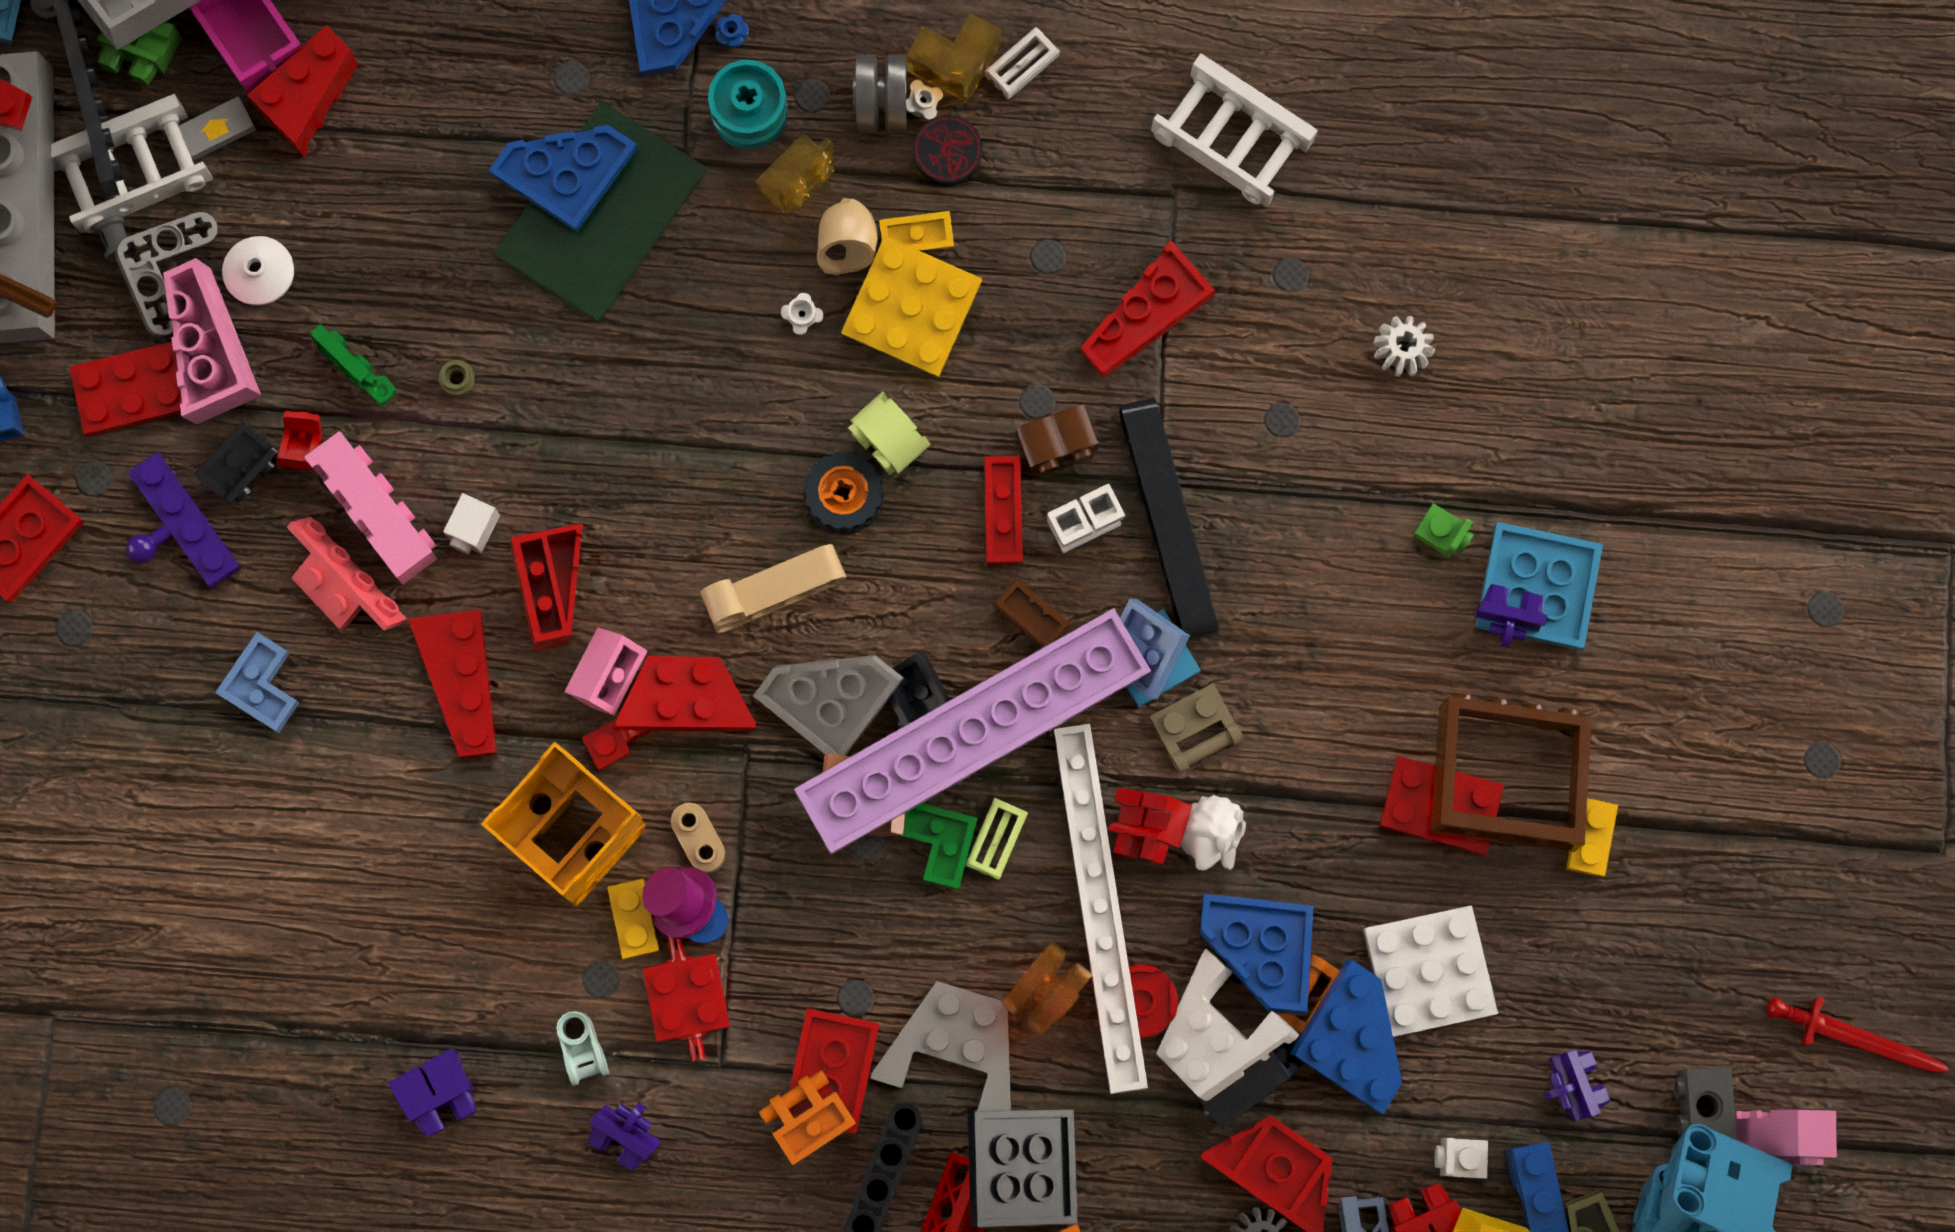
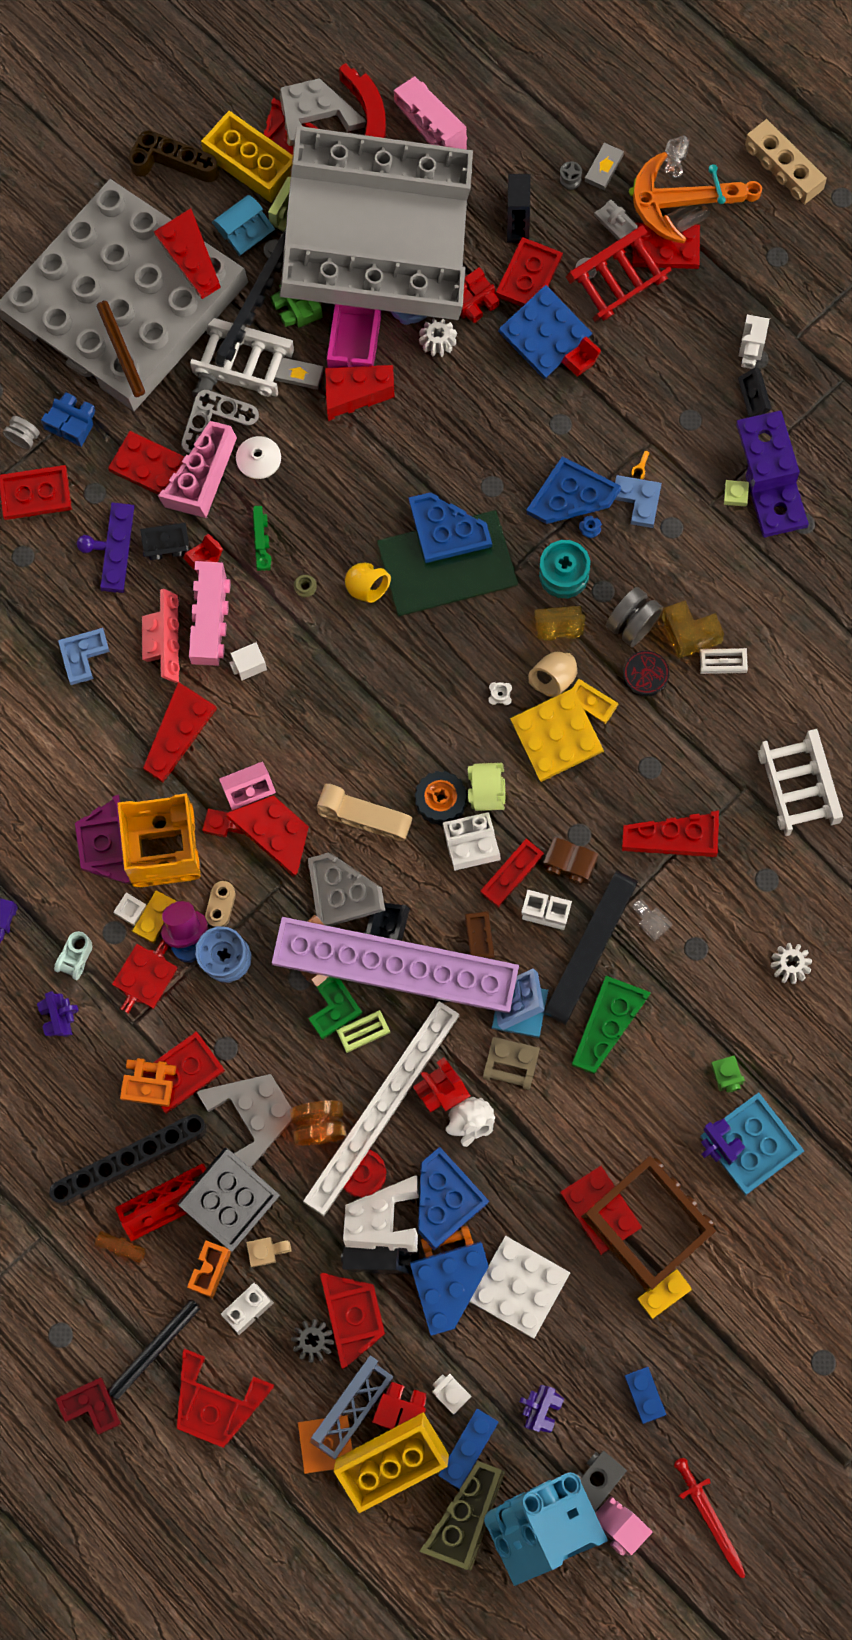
camera: 50 degrees right, 5 degrees down
(493, 885) = (101, 842): none -> magenta wing
(521, 313) = (360, 579): none -> yellow helmet
(547, 582) = (259, 719): red wedge -> none
(597, 935) = (130, 909): none -> white plate
(739, 883) = (218, 942): none -> medium blue wheel
(920, 109) = (653, 644): white plate -> none
(926, 513) = (471, 841): none -> white brick
(1111, 1189) = (264, 1251): none -> tan plate
(1210, 429) = (653, 922): none -> clear plate
(1260, 581) = (609, 1019): none -> green wing
(1670, 967) = (645, 1395): none -> blue plate

